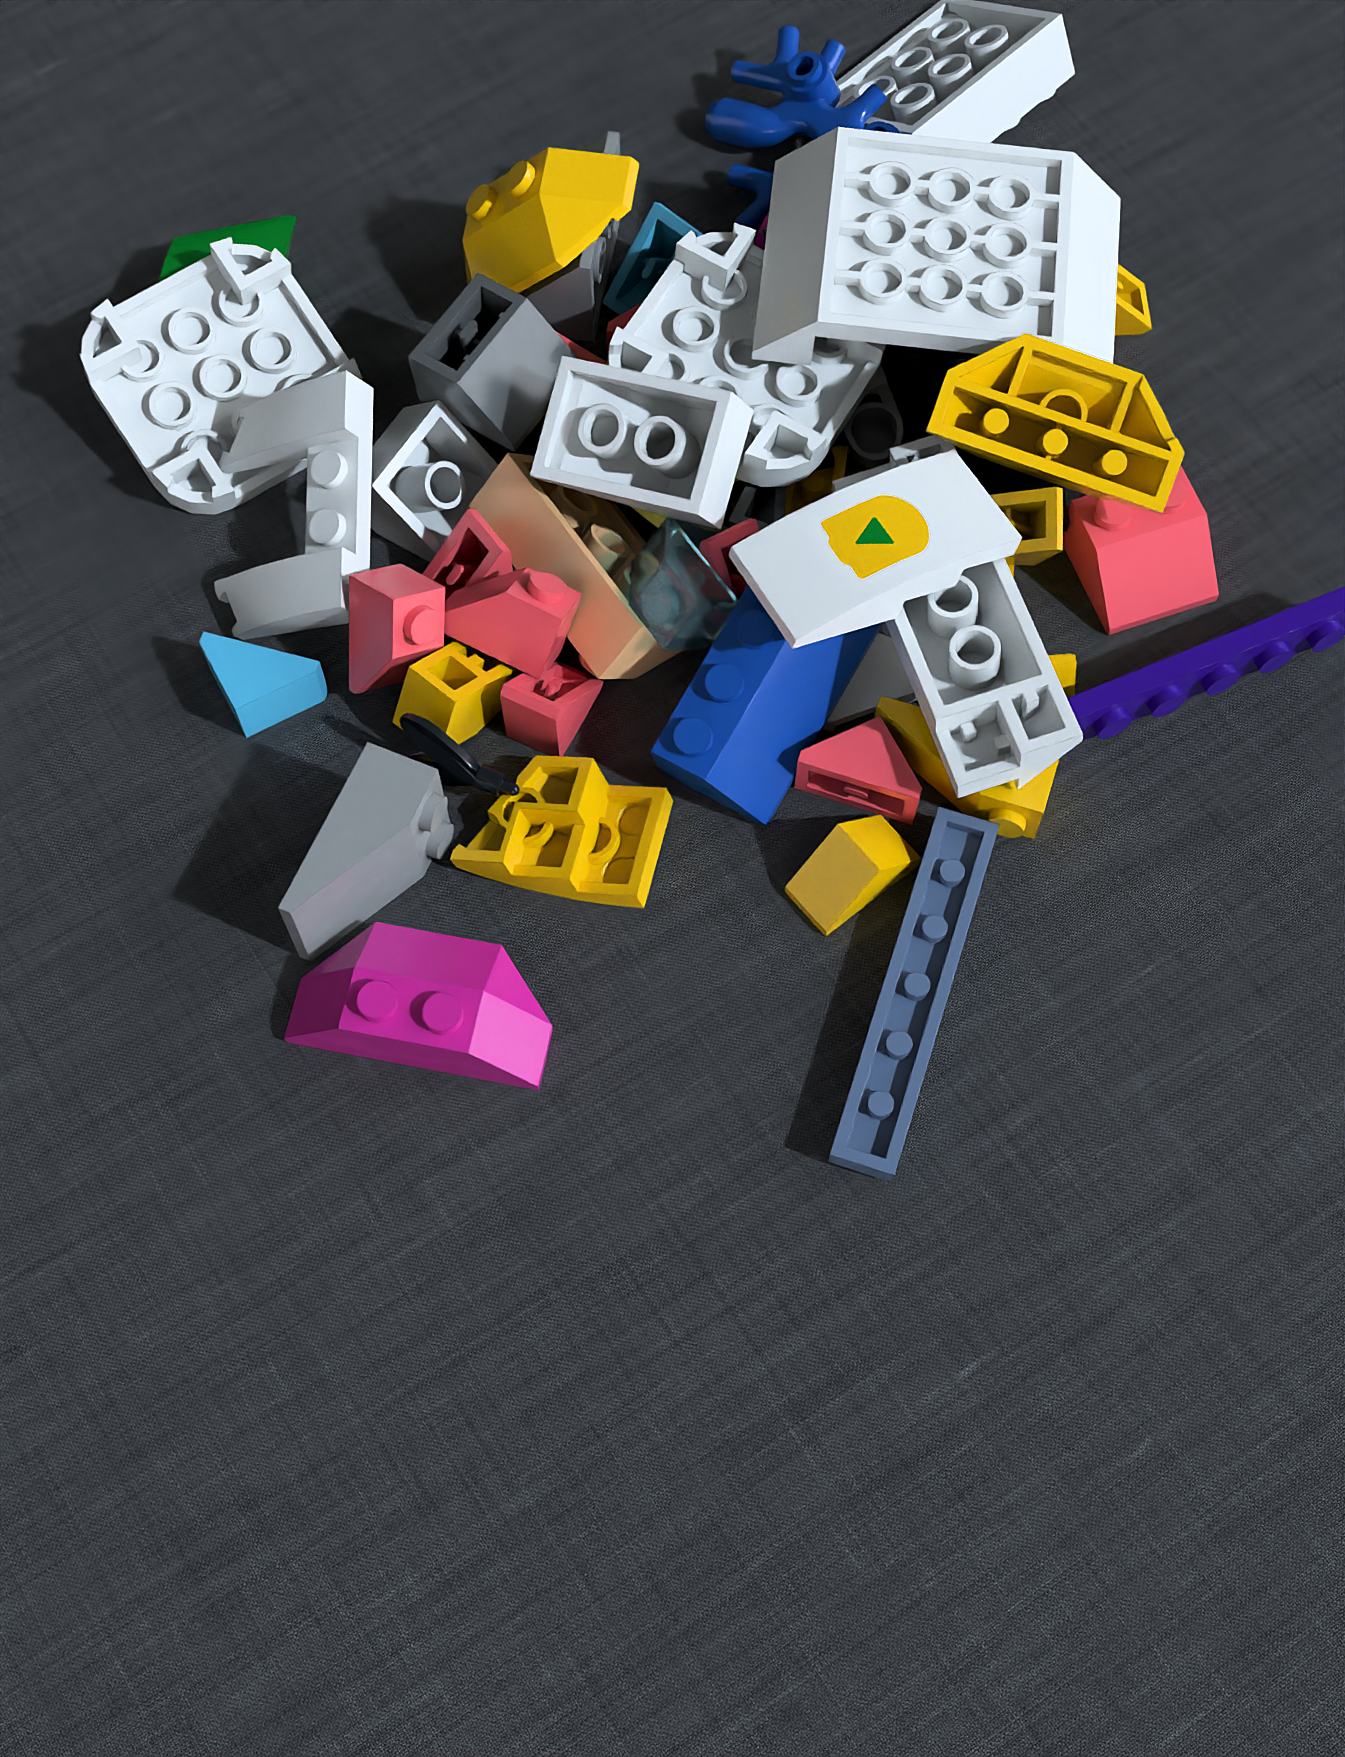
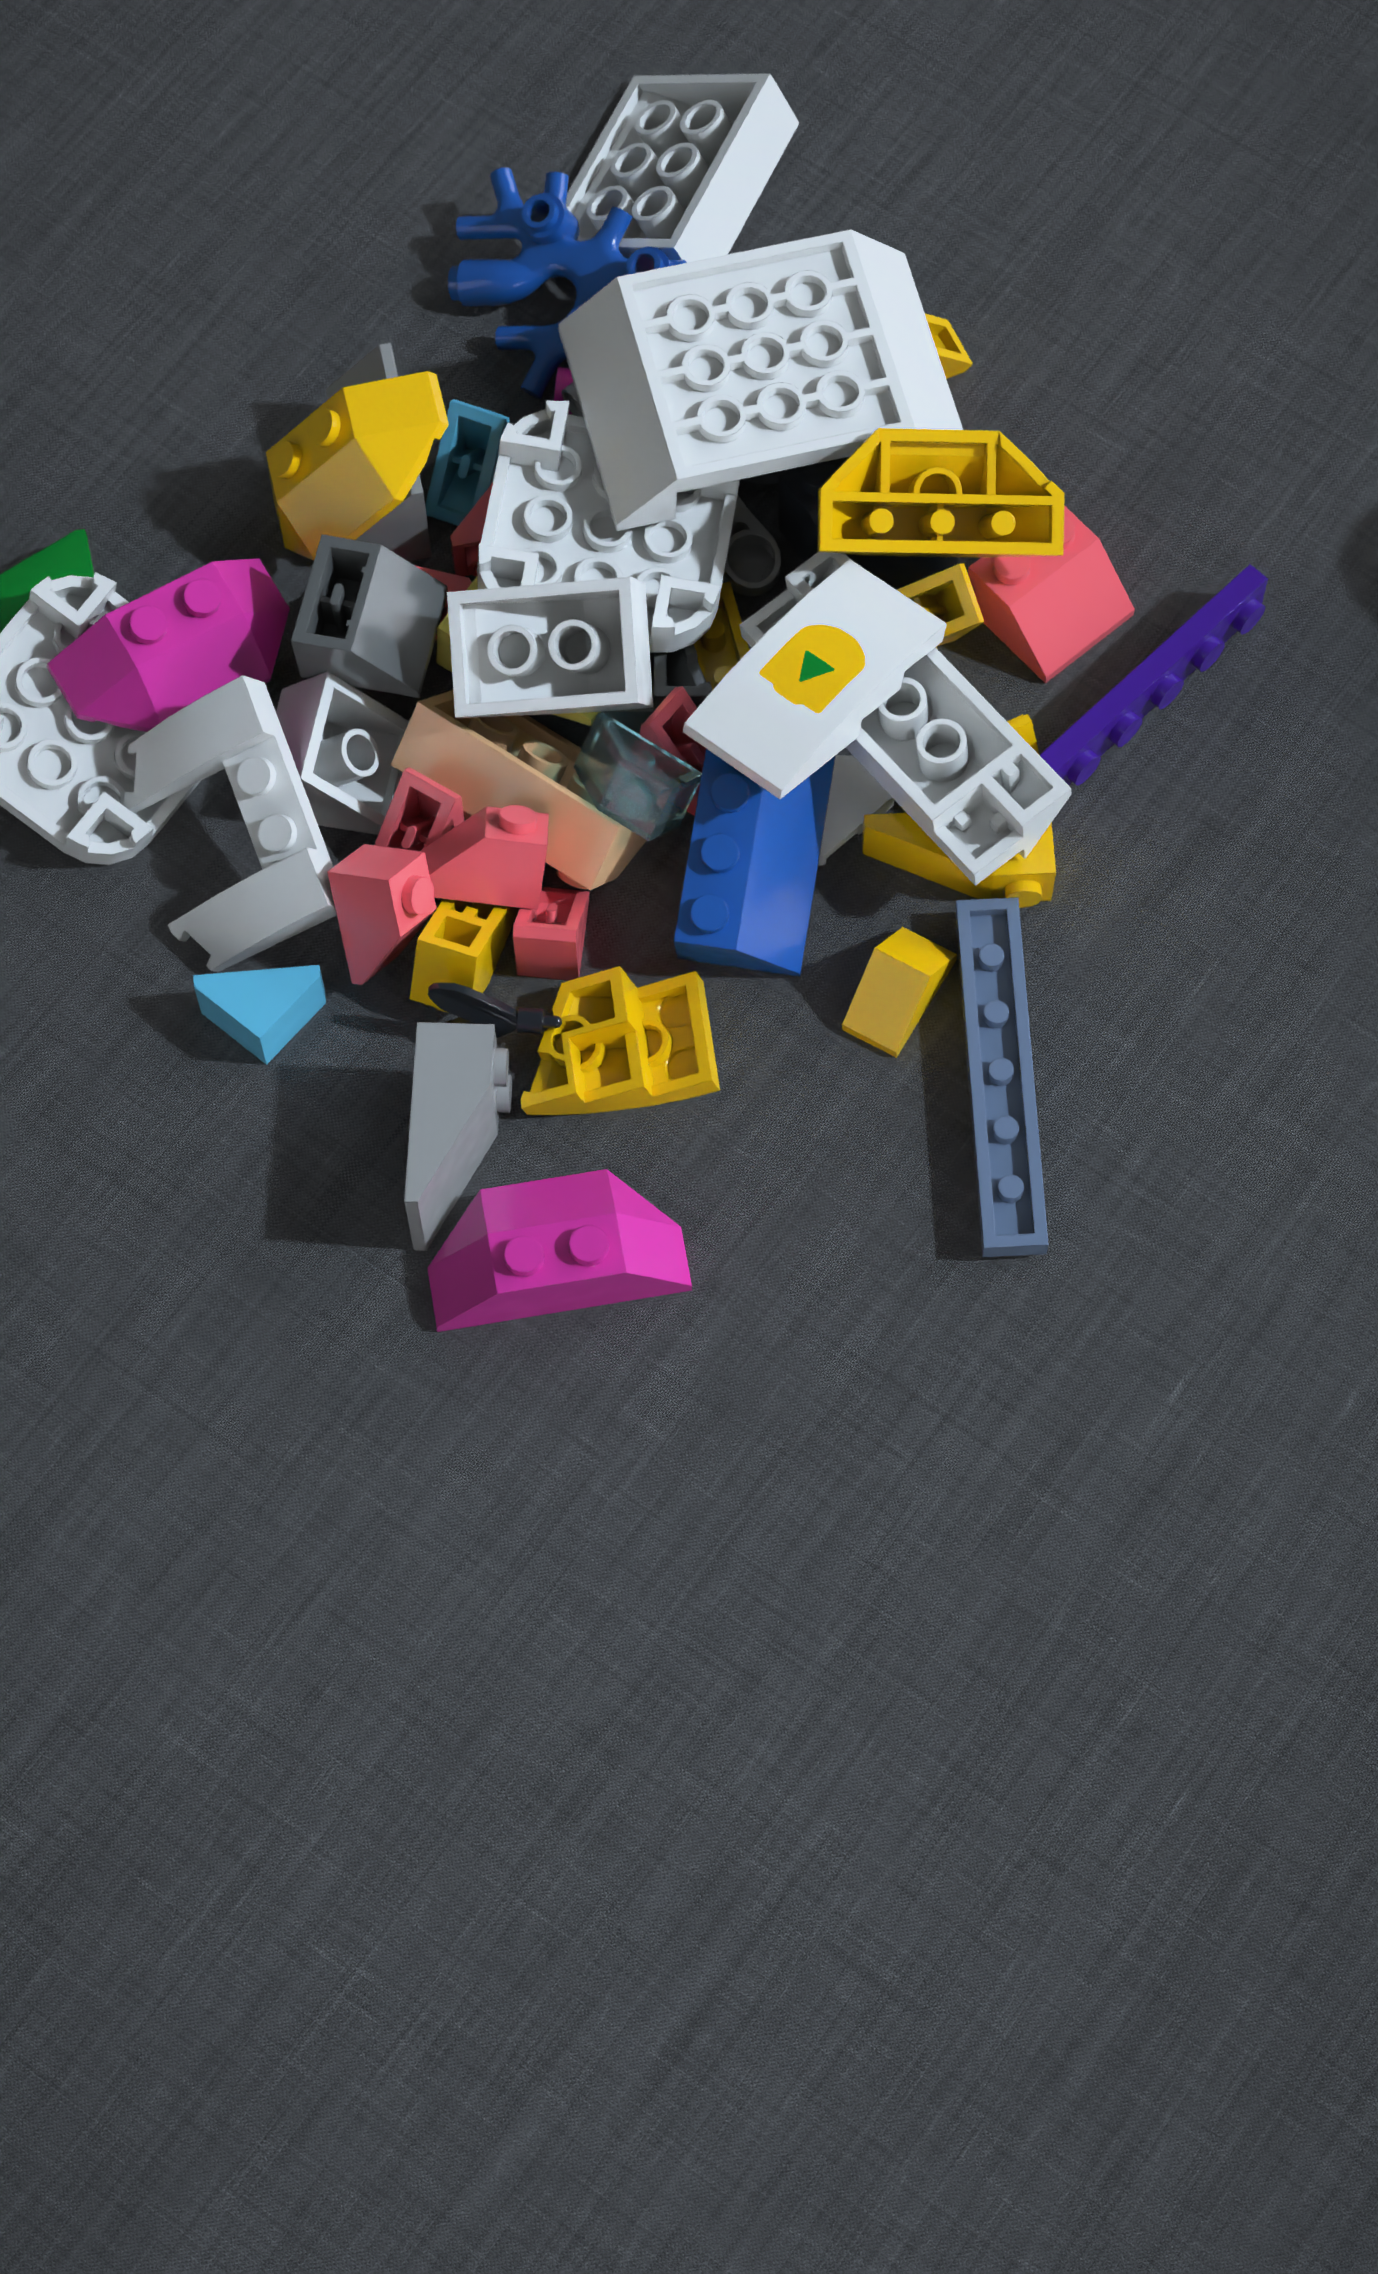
camera: 20 degrees left, 0 degrees up
(319, 327) = (174, 646): none -> dark pink wedge
(861, 771) = (873, 892): coral slope -> none

